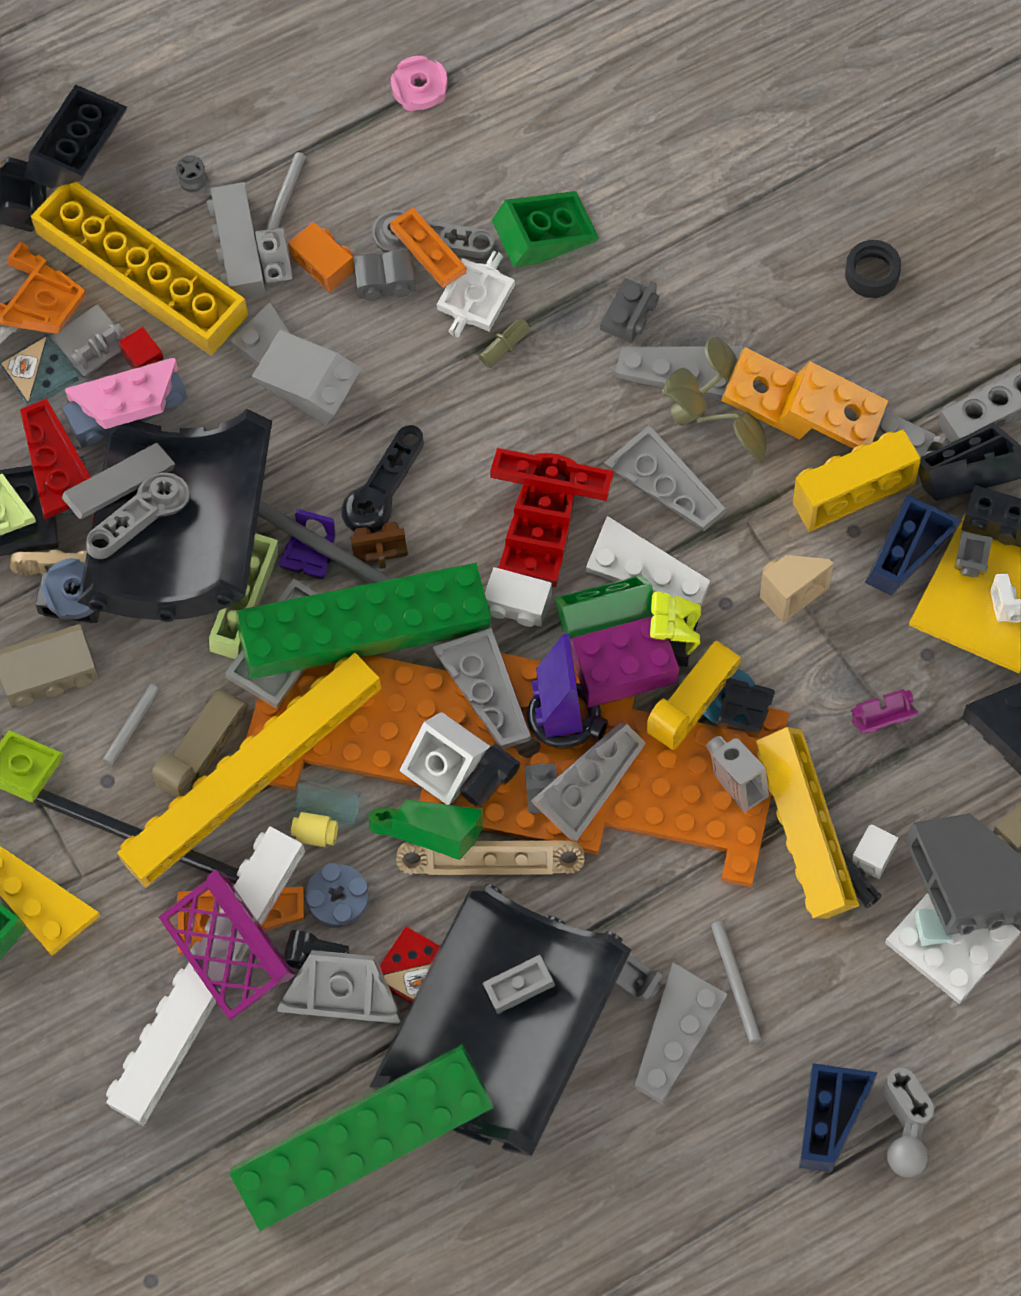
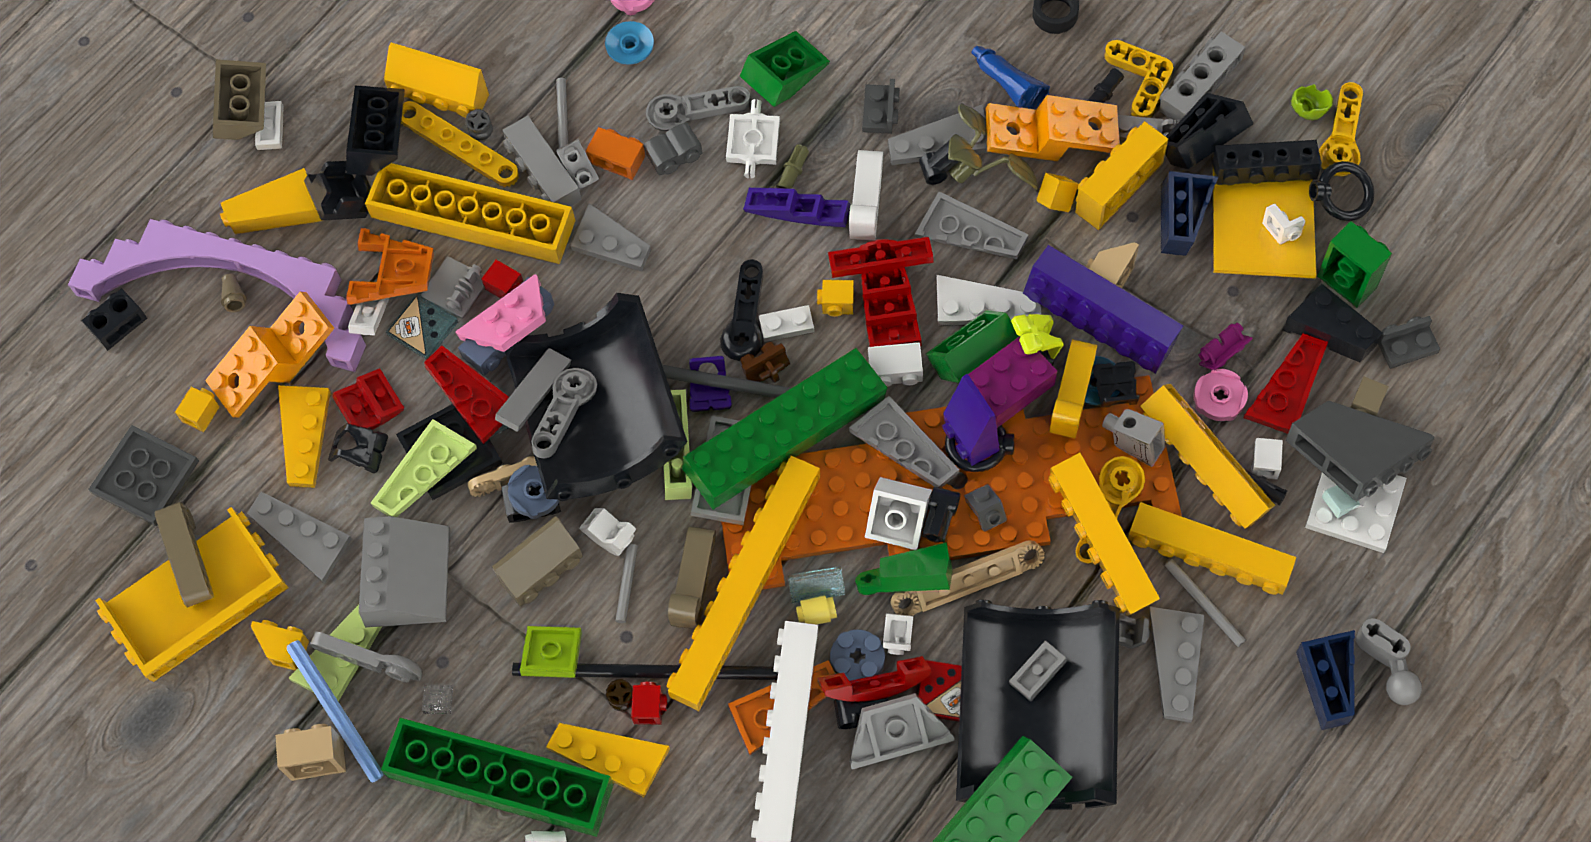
camera: 20 degrees left, 0 degrees up
(69, 833) = (618, 689): none -> dark brown wheel
(95, 859) = (648, 703): none -> red brick
(134, 661) = (608, 531): none -> white brick
(161, 187) = (459, 144): none -> yellow plate
(163, 109) = (435, 80): none -> yellow slope
(249, 929) = (803, 708): magenta fence -> none
(306, 375) = (648, 250): light grey slope -> none
(340, 935) = (908, 674): none -> red slope
(386, 131) = (629, 34): none -> dark azure dish
(389, 887) = (897, 633): none -> white bracket
(422, 509) = (786, 323): none -> white plate
(428, 247) = (700, 114): orange plate -> none
(487, 501) = (836, 297): none -> yellow brick
(490, 387) = (797, 208): none -> dark purple slope
(556, 422) = (866, 195): none -> white beam
(584, 787) = (1021, 492): light grey wing -> none
(649, 864) = (1103, 534): none -> yellow brick
(654, 401) = (936, 164): none -> black piece
(680, 833) = (1117, 495): none -> yellow beam
(764, 620) = (1102, 309): none -> dark purple brick
(768, 926) = (1211, 549): none -> yellow brick
(779, 473) = (1057, 192): none -> yellow panel
(790, 340) = (1021, 87): none -> blue piece
(857, 780) = (1218, 409): none -> bright pink plate
(886, 378) = (1104, 90): none -> black pin
(939, 781) = (1289, 387): none -> red wing
(945, 374) = (1148, 70): none -> yellow beam
(973, 554) = (1238, 199): dark grey bracket -> none

